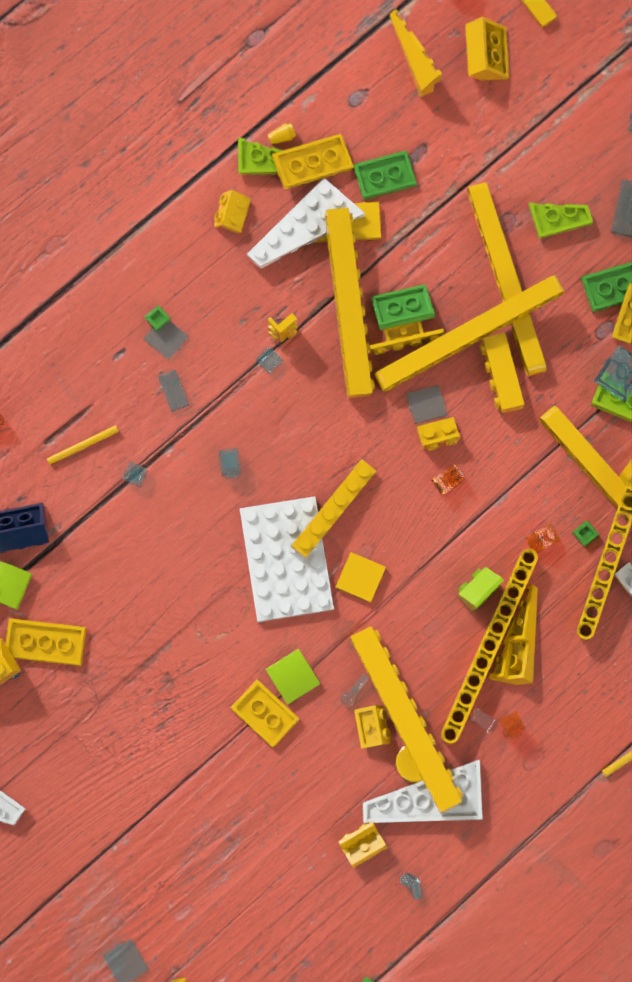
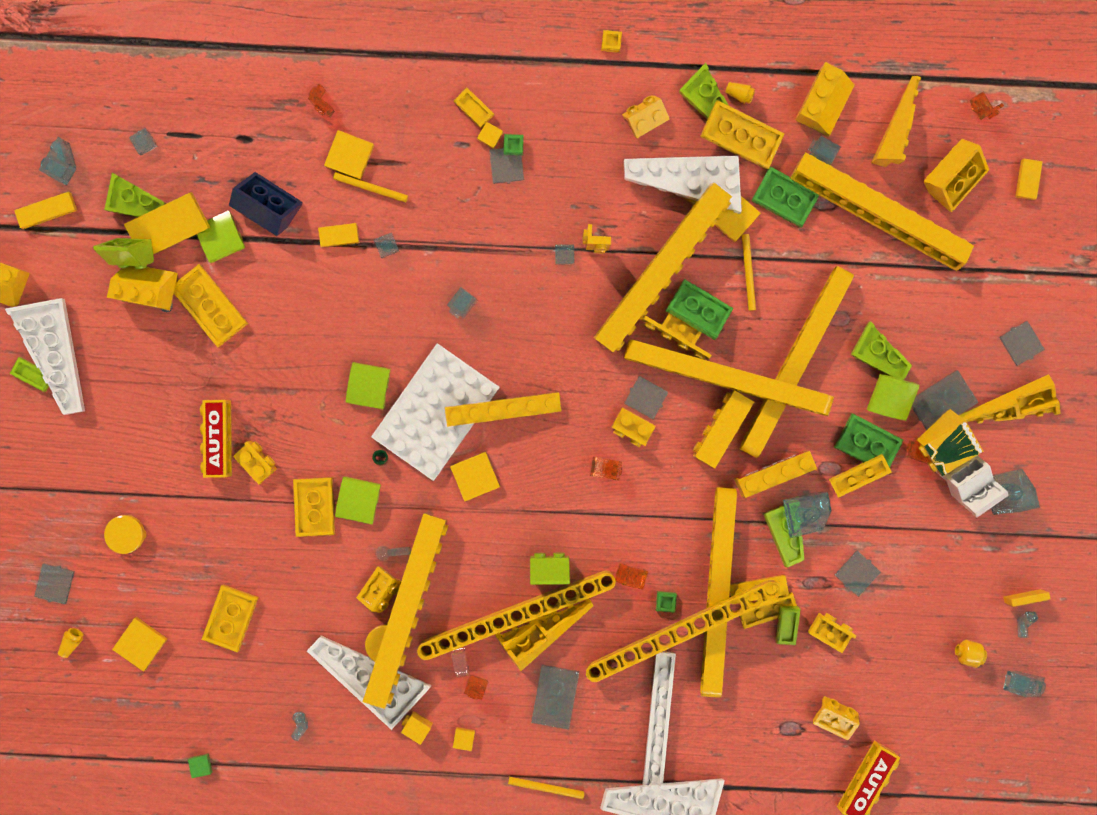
camera: 40 degrees right, 10 degrees up
(44, 437) = (349, 155): none -> yellow tile
(92, 500) = (338, 235): none -> yellow tile
(103, 320) = (473, 108): none -> yellow tile
(134, 328) = (490, 135): none -> yellow tile
(144, 870) = (124, 534): none -> yellow tile
(148, 734) = (216, 438): none -> brick
(156, 184) = (611, 41): none -> yellow tile
(173, 390) = (473, 210): clear light blue tile -> none
(189, 722) = (255, 461): none -> yellow bracket
(219, 586) = (367, 385): none -> lime slope
(234, 943) = (140, 644): none -> yellow tile
(277, 626) = (382, 454): none -> dark green hinge
(283, 857) = (230, 618): none -> yellow tile
(346, 85) = (825, 99): none -> yellow slope
(362, 844) = (291, 665): yellow bracket -> none
(379, 120) = (824, 150): none -> clear light blue brick
(413, 251) = (748, 272): none -> yellow bar
(461, 122) = (882, 212): none -> yellow brick
(498, 800) = (416, 727): none -> yellow brick
(541, 775) = (463, 739): none -> yellow tile
(570, 368) = (775, 473): none -> yellow brick
(576, 679) = (555, 697): none -> clear light blue tile
(597, 238) = (893, 397): none -> lime slope

